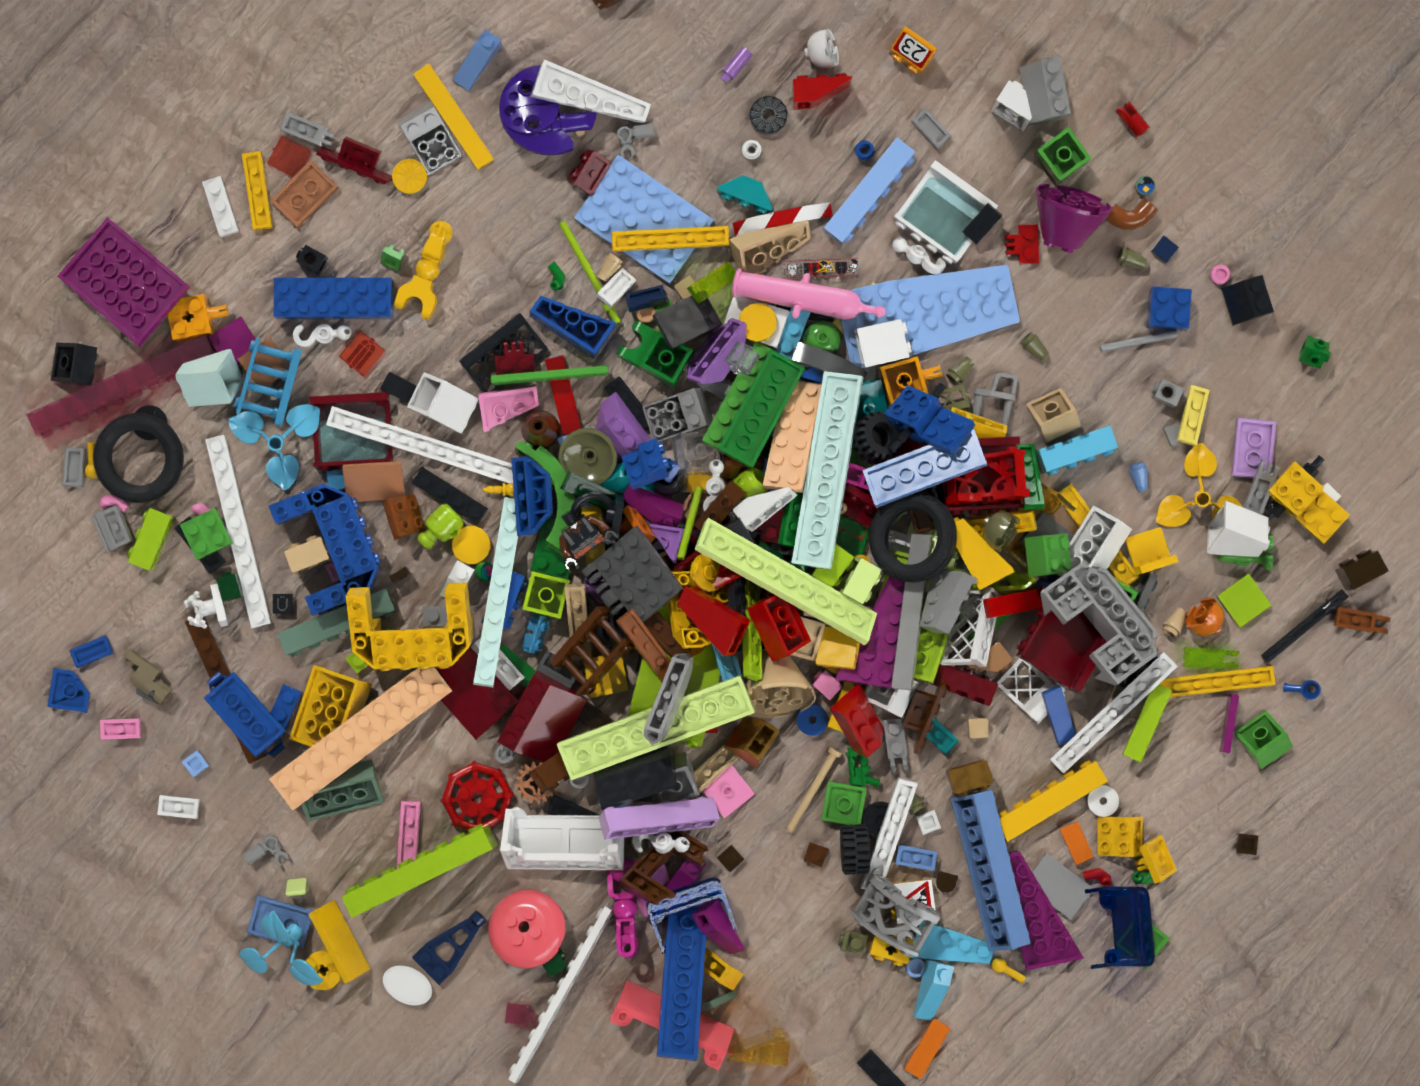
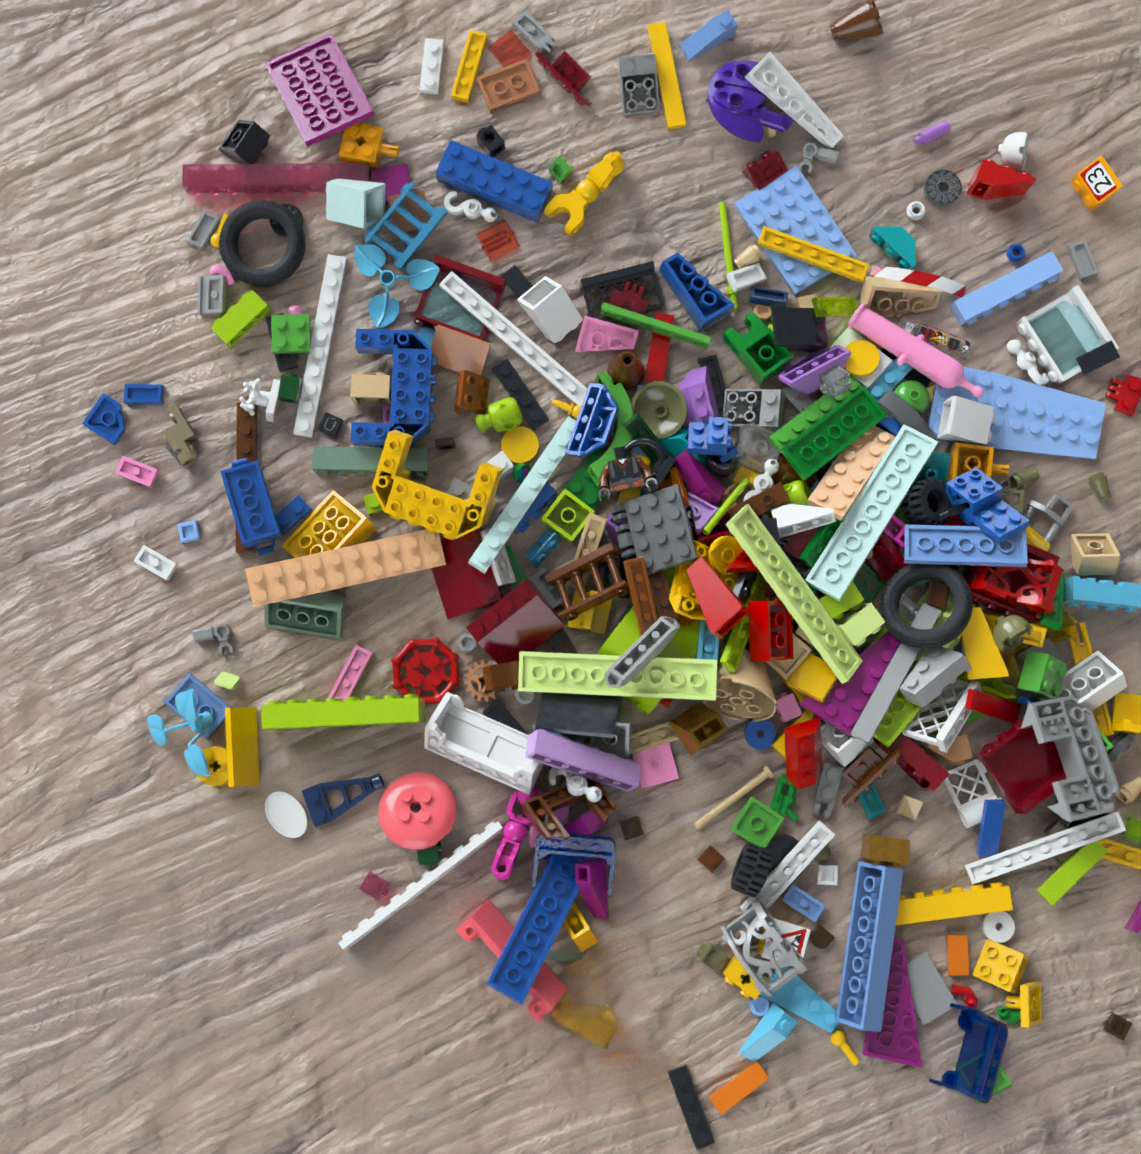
camera: 20 degrees right, 5 degrees down
(409, 176) = (606, 108): yellow wheel -> none
(558, 277) = (699, 246): green arm -> none

